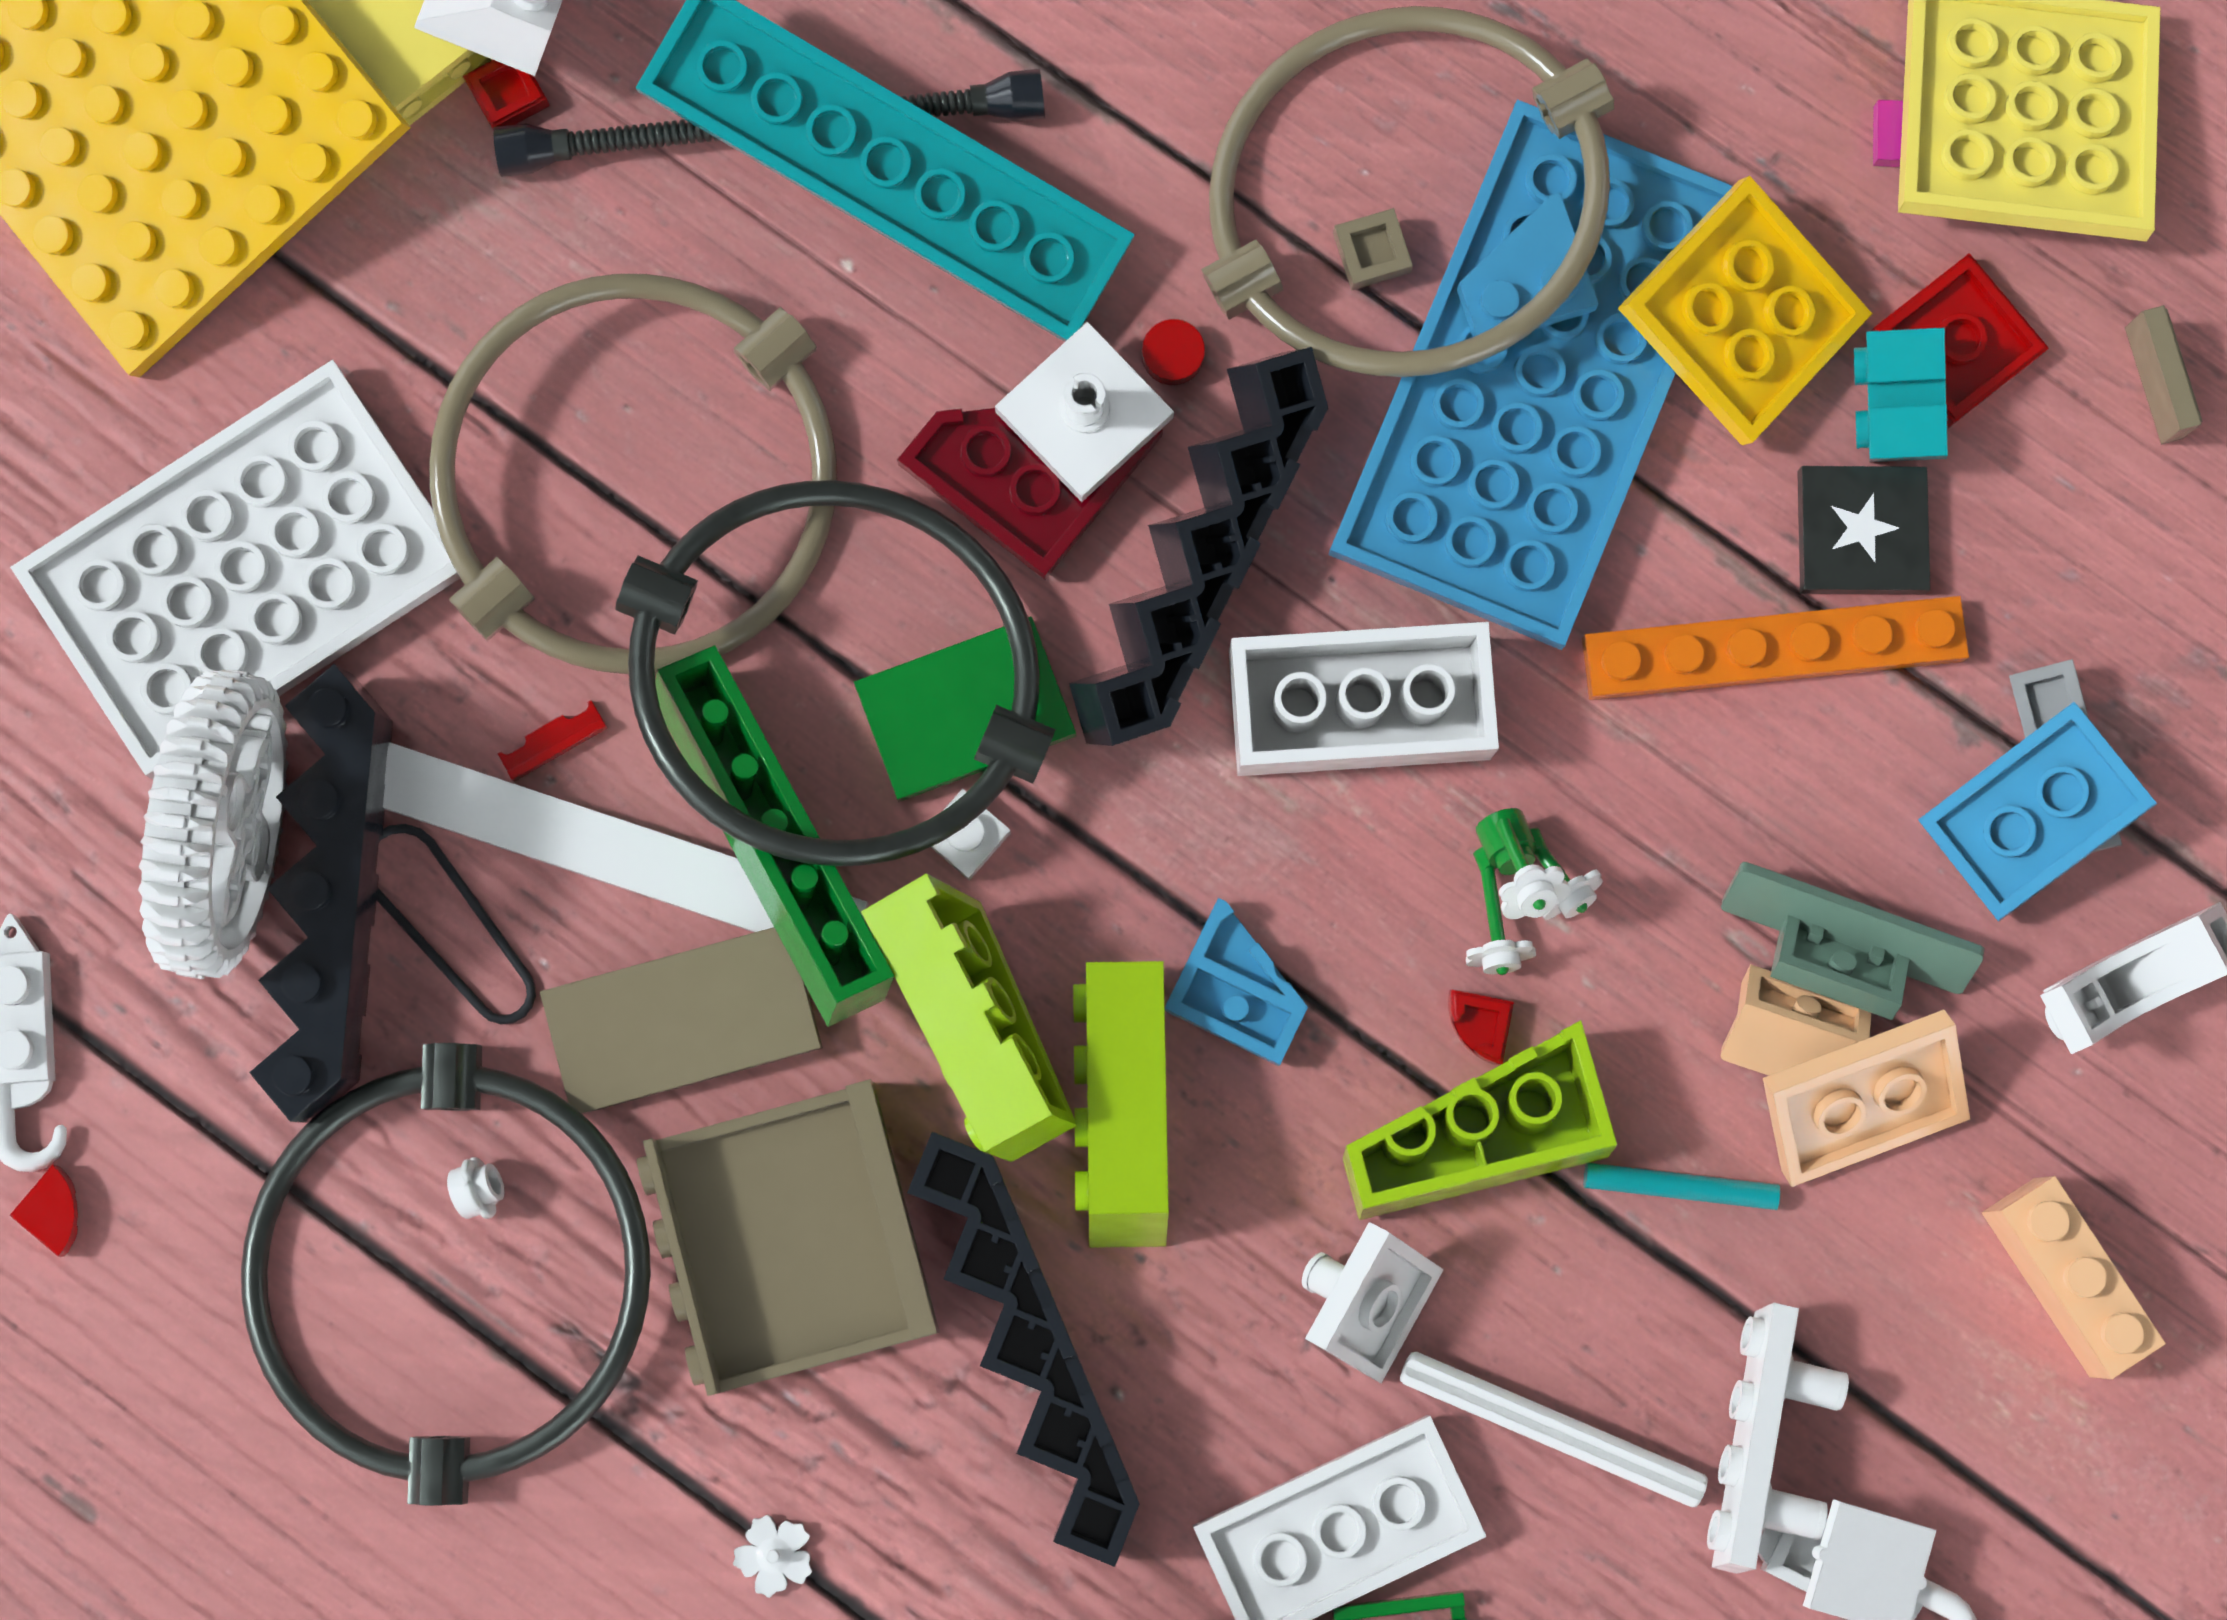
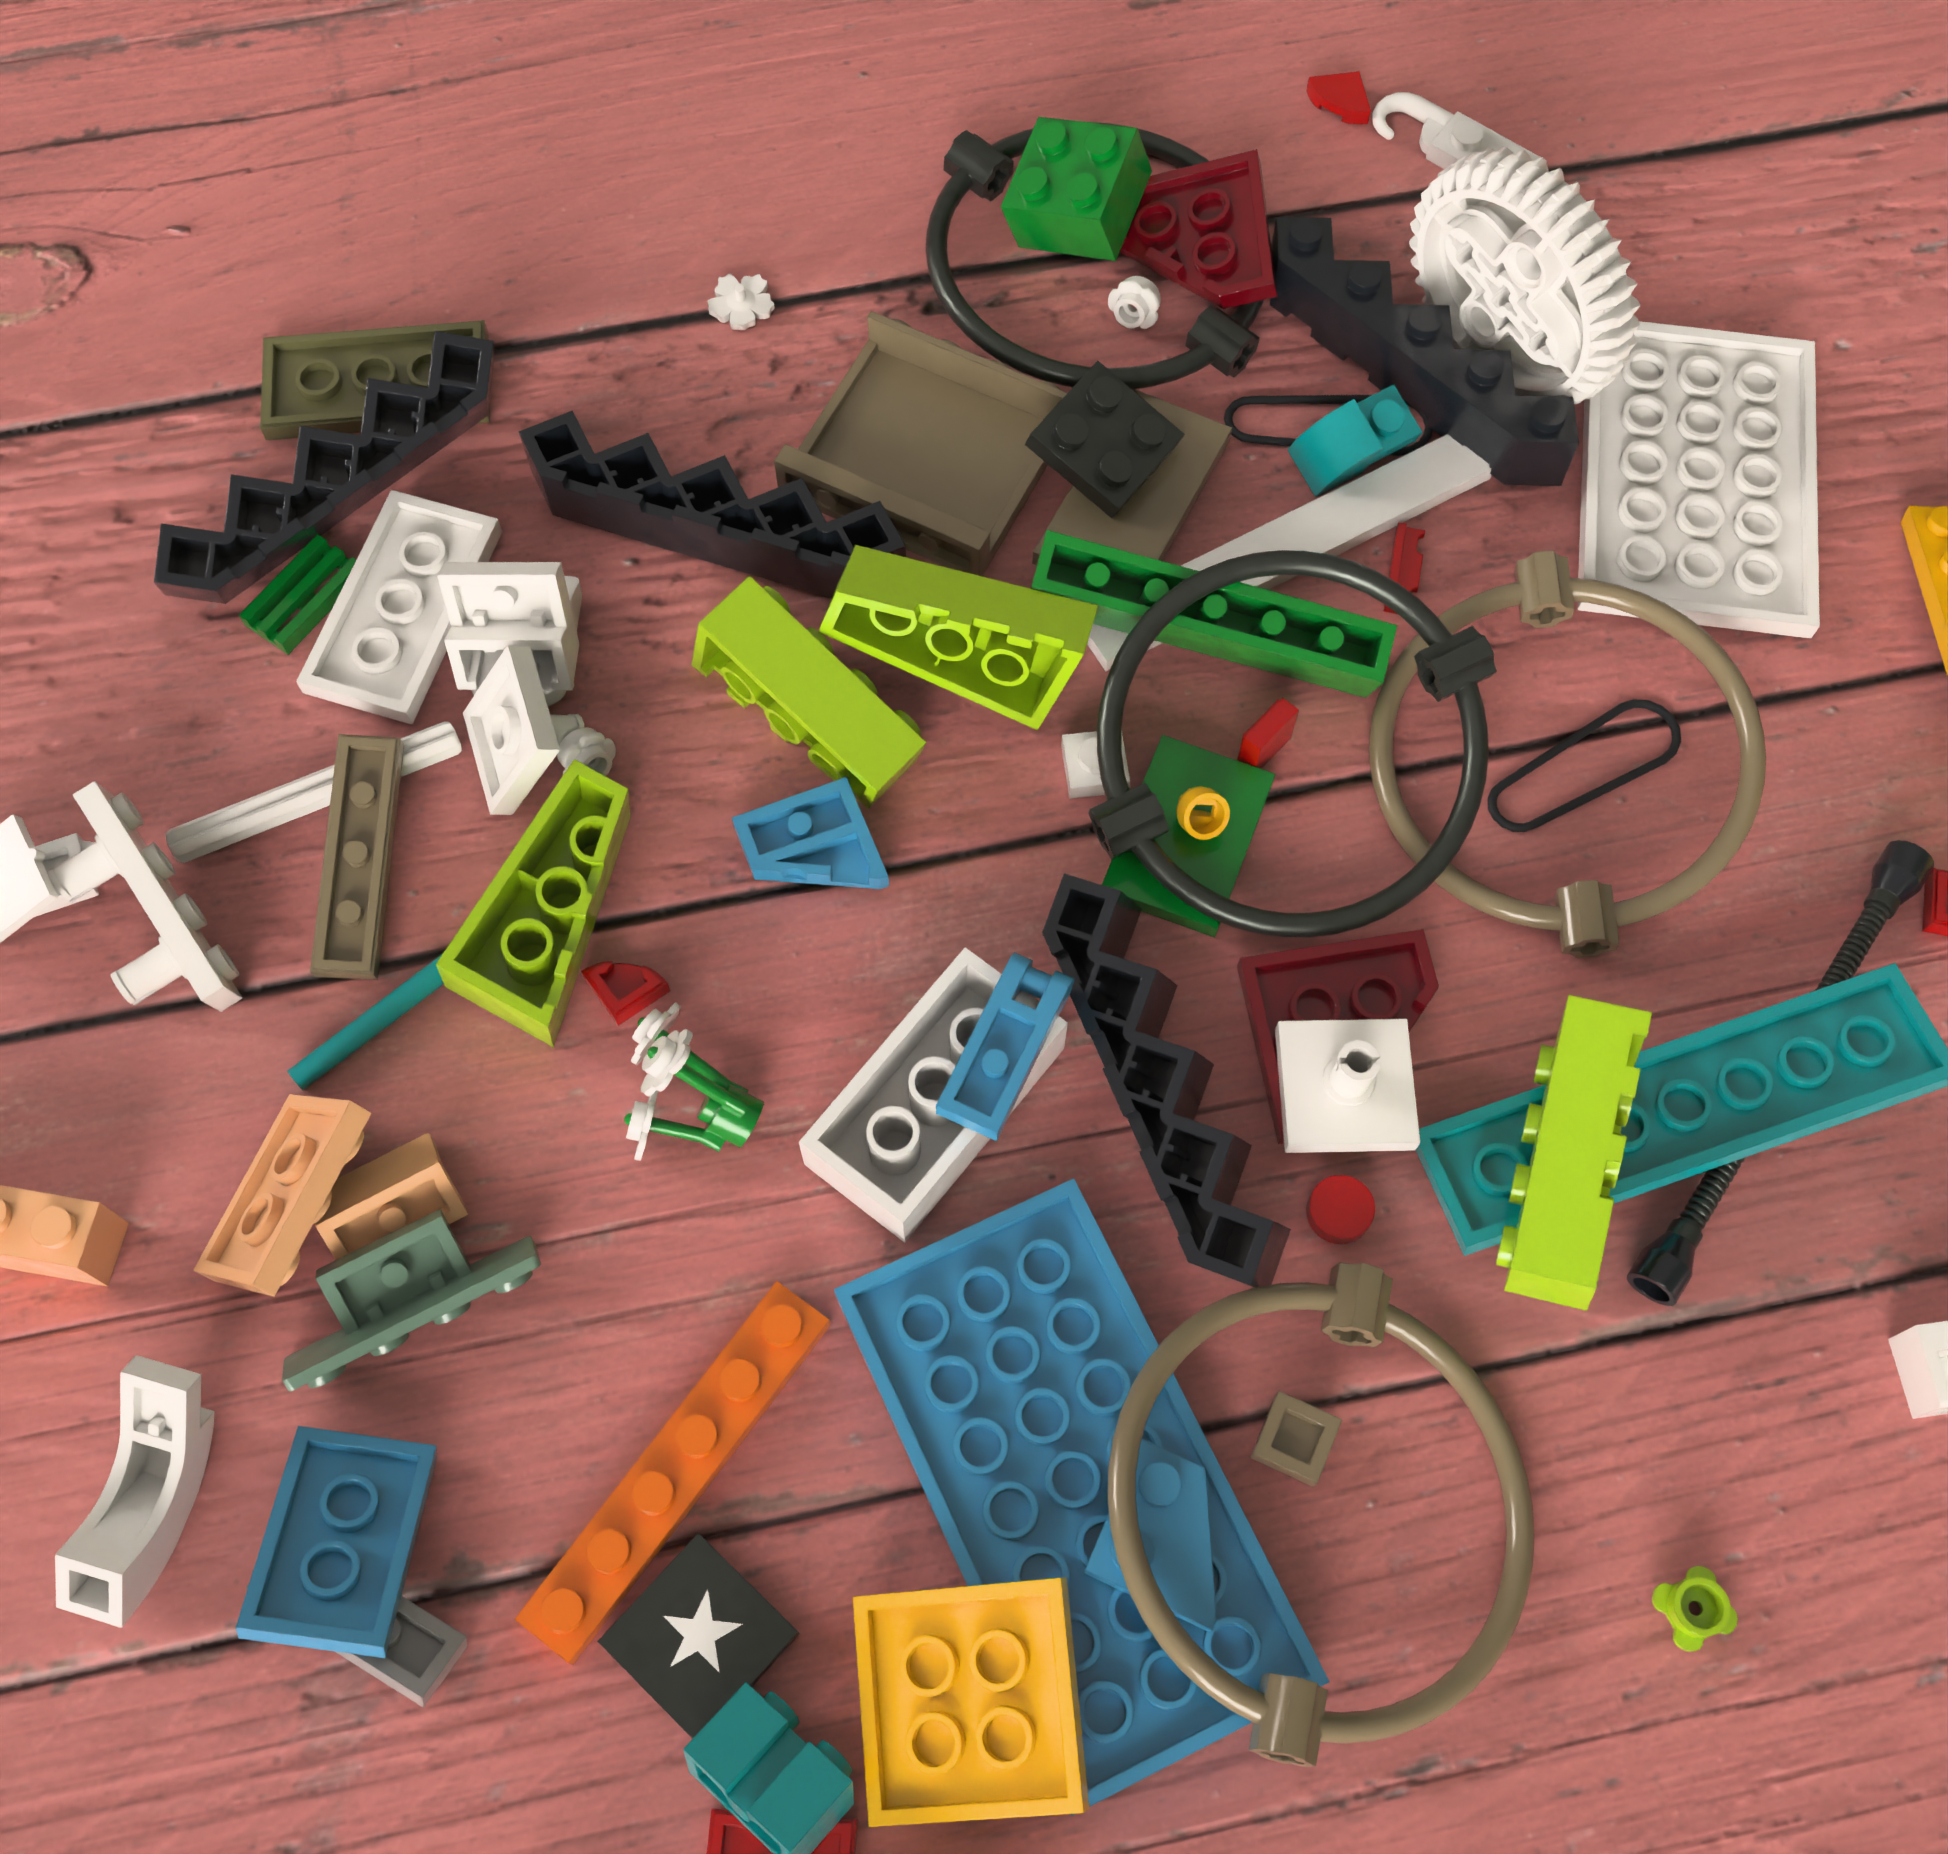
camera: 135 degrees right, 15 degrees down
(350, 1193) = (1208, 230): none -> dark red plate
(405, 1336) = (1077, 188): none -> green brick
(473, 872) = (1352, 439): none -> teal brick
(612, 486) = (1634, 703): none -> black piece
(663, 1073) = (1104, 439): none -> pearl dark grey plate
(828, 713) = (1268, 734): none -> red tile
(951, 700) = (1200, 823): none -> yellow hinge
(1017, 198) = (1574, 1153): none -> lime wedge
(1277, 1403) = (512, 605): none -> white piece
(1300, 657) = (1003, 1048): none -> dark azure plate
(1330, 1235) = (588, 748): none -> white plate
(1575, 1330) = (357, 857): none -> dark tan tile

